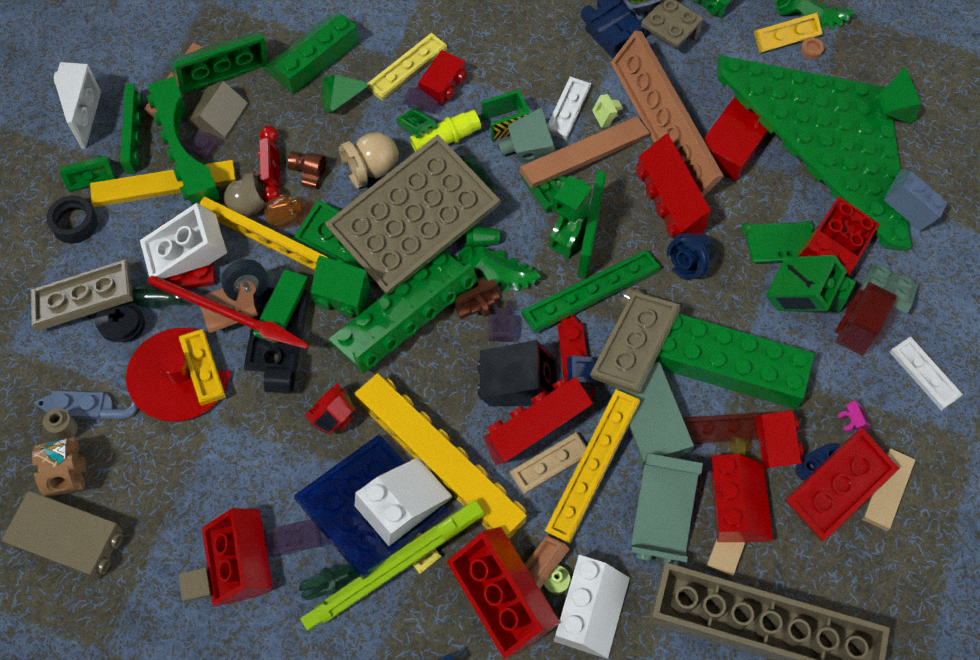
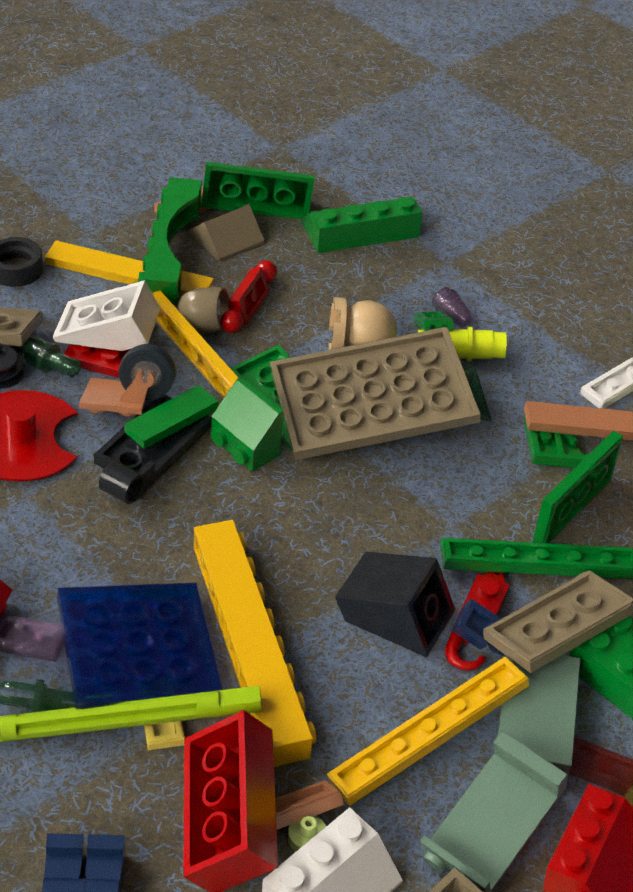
camera: 25 degrees right, 20 degrees down
(78, 98) = (94, 166): white slope -> none
(83, 173) = (51, 228): green tile -> none
(130, 135) = (128, 212): green plate -> none
(202, 367) = (49, 438): yellow tile -> none
(203, 145) = (192, 256): clear purple plate -> none
(267, 329) = (140, 426): red piece -> none
(283, 211) = (234, 340): clear orange head -> none
(312, 167) = (292, 314): copper piece -> none
(331, 410) = (158, 532): red cone -> none
(338, 90) = (371, 262): green slope -> none
(400, 499) = (173, 648): white slope -> none
(403, 311) = (305, 480): green bracket -> none
(406, 66) = (457, 275): light yellow tile -> none
(443, 77) = (491, 295): red brick -> none
(477, 299) = (396, 506): copper hips -> none
(481, 236) = (439, 452): green cone -> none
(497, 267) = (440, 490): green plant -> none
(501, 105) = (540, 354): green piece -> none
(501, 324) = (412, 541): clear purple plate -> none
(528, 138) = (555, 381): sand green torso -> none
(537, 420) = (386, 644): red slope -> none
(548, 463) = (373, 709): tan tile -> none
(572, 205) = (560, 432): green arch -> none

